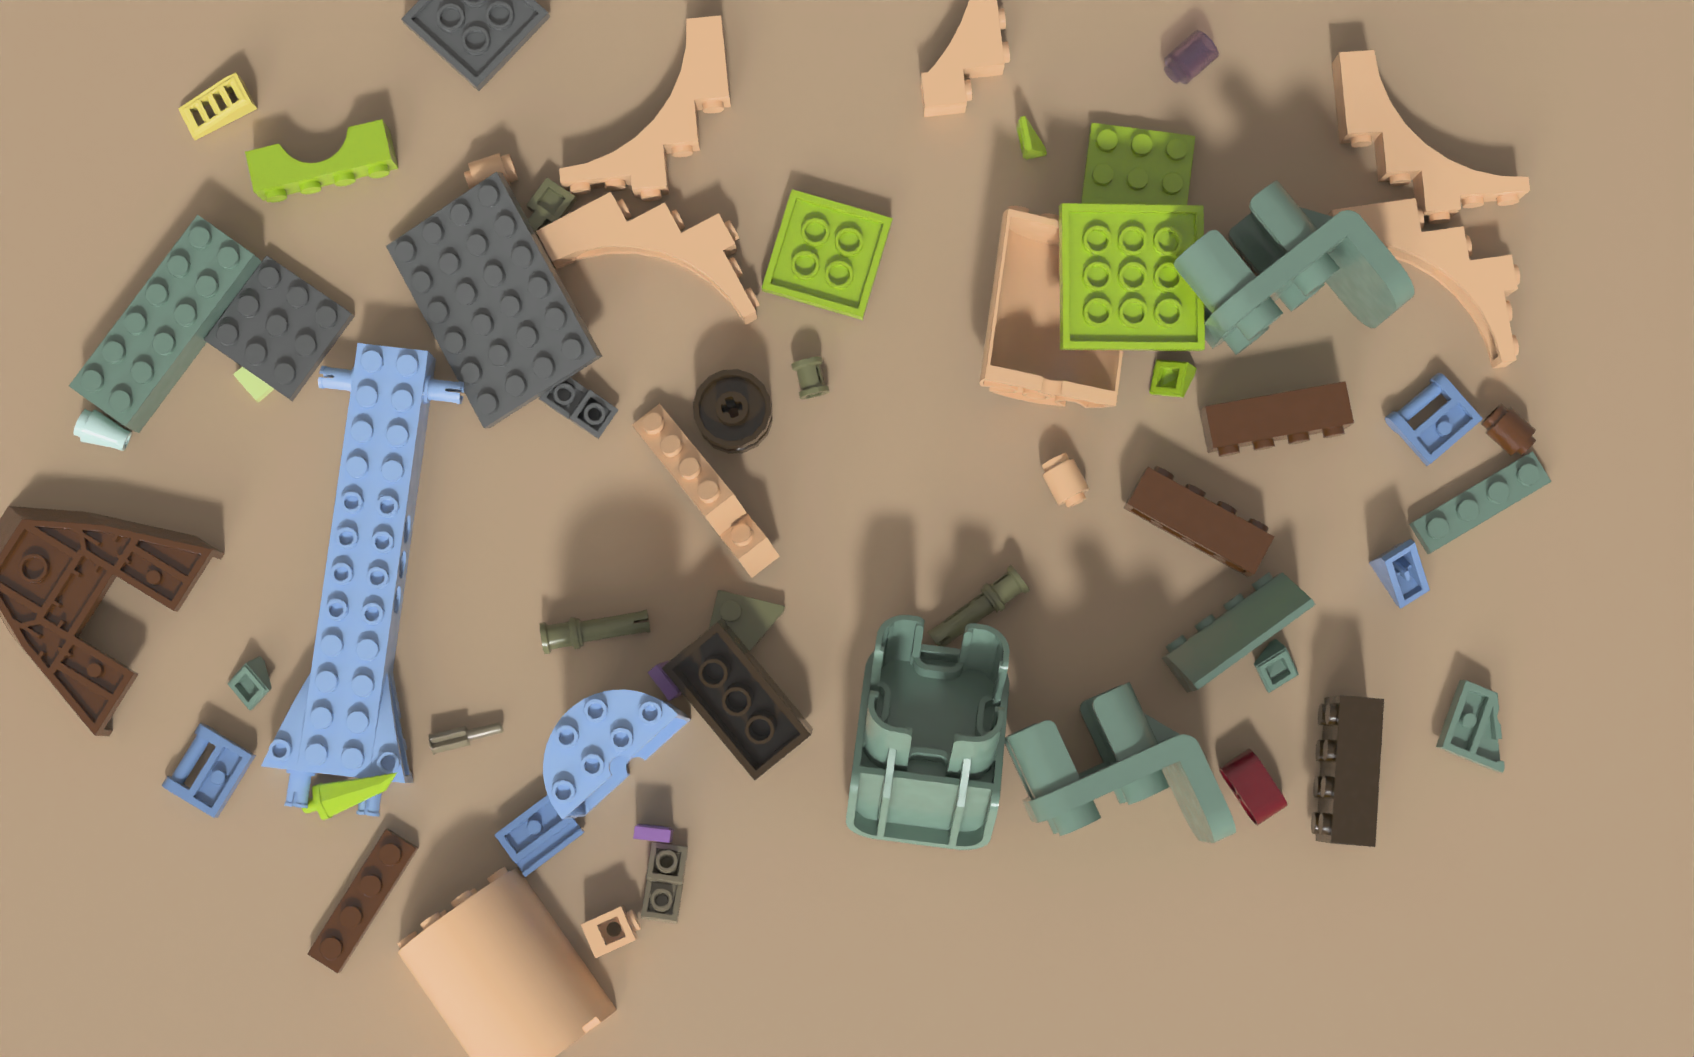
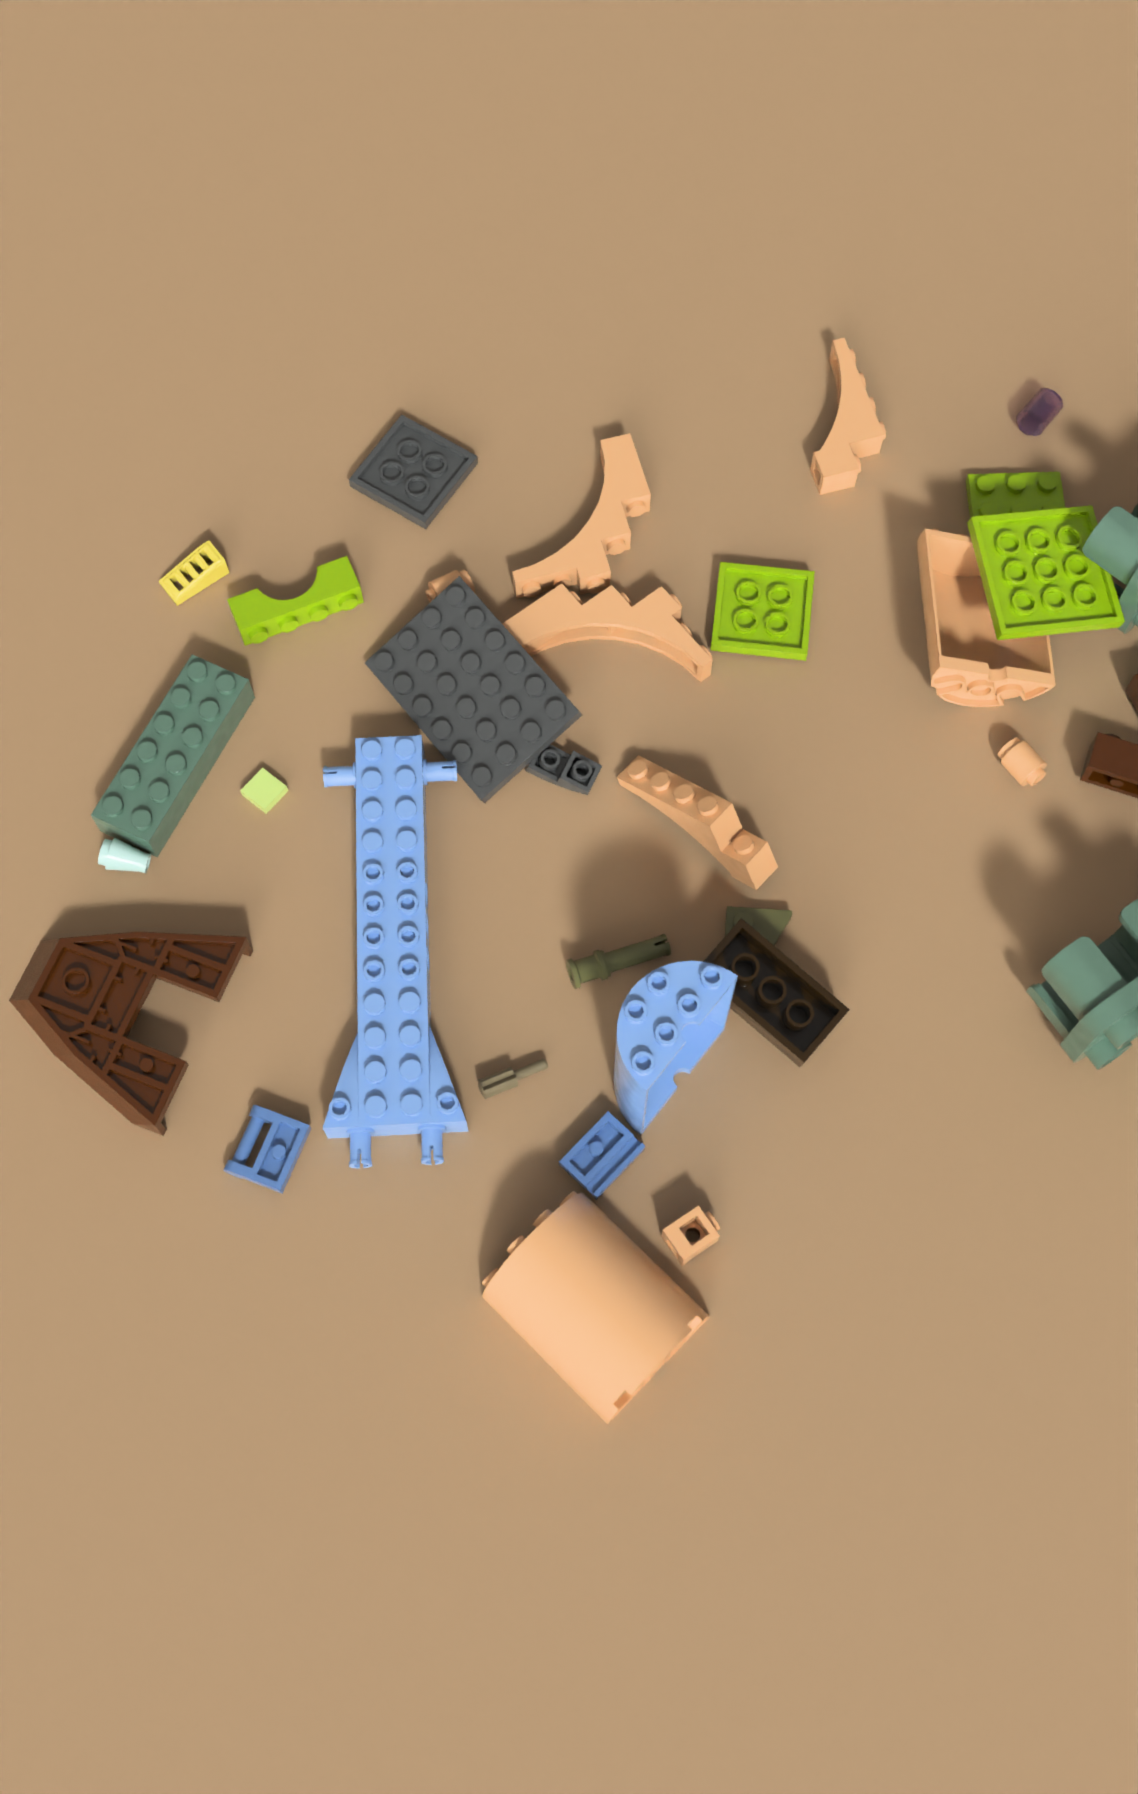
camera: 10 degrees left, 15 degrees down
(251, 682) = (297, 1061): sand green slope -> none
(279, 328) = (277, 746): dark grey plate -> none
(338, 796) = (402, 1147): lime bar -> none
(362, 901) = (438, 1251): reddish brown plate -> none
(549, 204) = (507, 603): olive plate -> none
(653, 833) = (713, 1135): medium lavender tile -> none
(664, 882) = (732, 1183): dark tan slope -> none
(733, 390) = (709, 747): dark brown wheel -> none
(810, 377) = (771, 712): olive bush -> none
(930, 738) = (966, 998): sand green piece -> none
(992, 598) = (981, 873): olive pin -> none
(1030, 143) = (916, 495): lime slope -> none
(1171, 378) = (1092, 665): lime slope -> none

